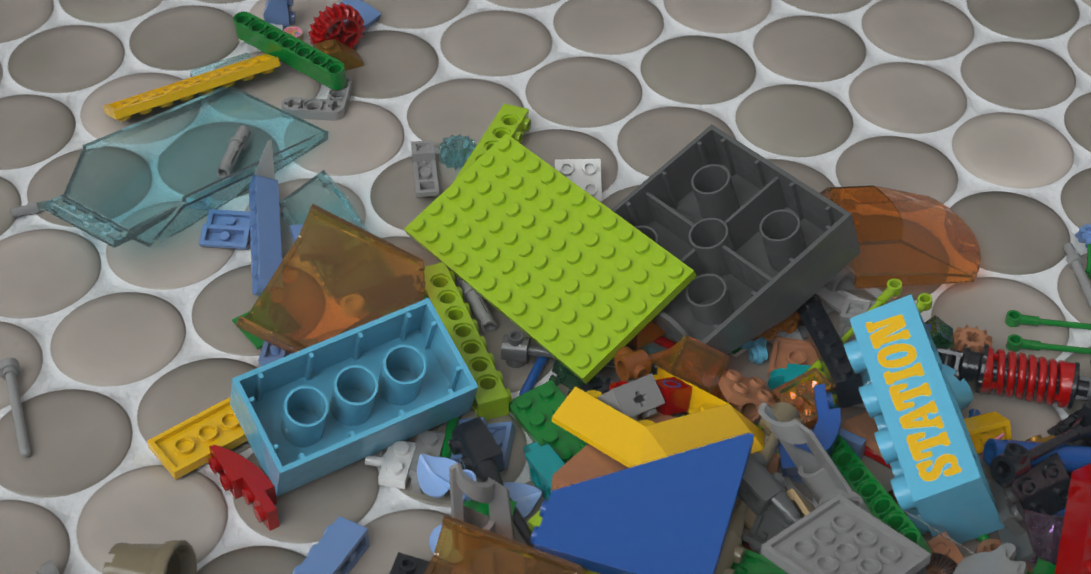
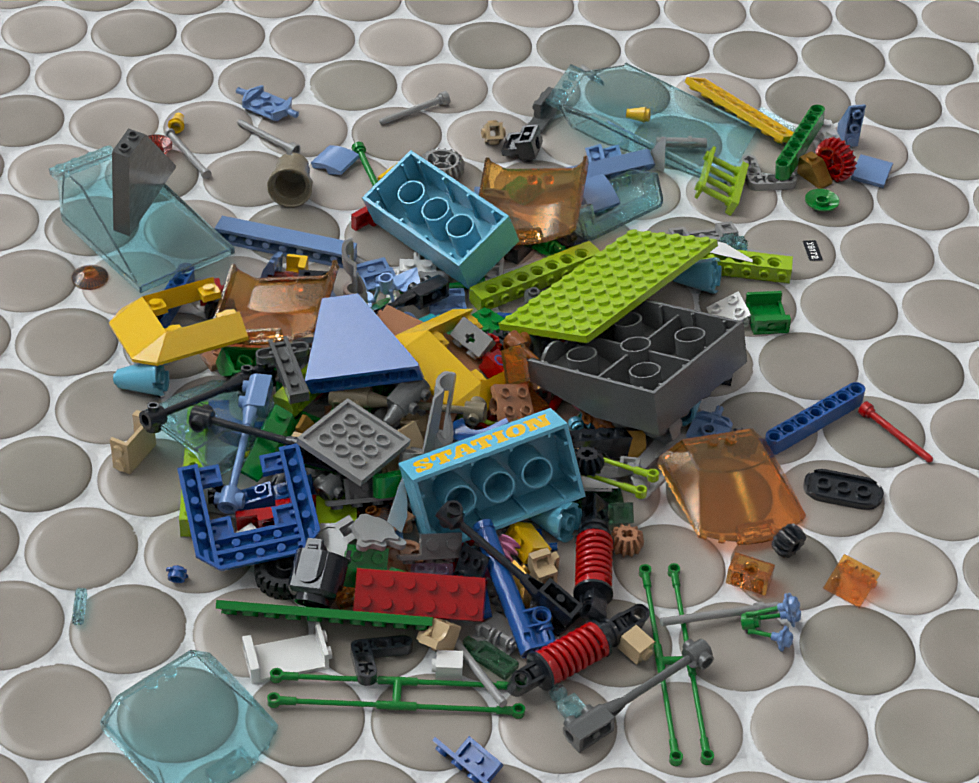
camera: 75 degrees right, 0 degrees up
(92, 488) = (360, 149): none -> green piece
(97, 266) = (543, 112): none -> dark grey bracket
(101, 522) = (335, 159): none -> medium blue slope
(130, 324) = (497, 128): none -> tan brick
(161, 173) = (639, 114): none -> yellow cone
(167, 298) = (523, 143): none -> black brick
(176, 395) = (447, 161): none -> light grey gear
(334, 130) = (736, 182): none -> lime fence
(395, 63) = (822, 199): none -> green dish
(398, 516) = (371, 270): none -> medium blue slope
(471, 155) = (726, 250): none -> white sticker
(474, 95) = (812, 250): none -> black sticker
(589, 148) = (767, 313): none -> green panel
(769, 112) = (867, 410): none -> red piece
(774, 145) = (815, 417): none -> blue beam
(888, 160) = (843, 489): none -> black tile
(983, 211) = (788, 540): none -> black gear
(1024, 424) = (544, 565): none -> tan brick
(1027, 255) = (750, 573): none -> clear orange brick
(1034, 182) = (852, 580): none -> clear orange hinge

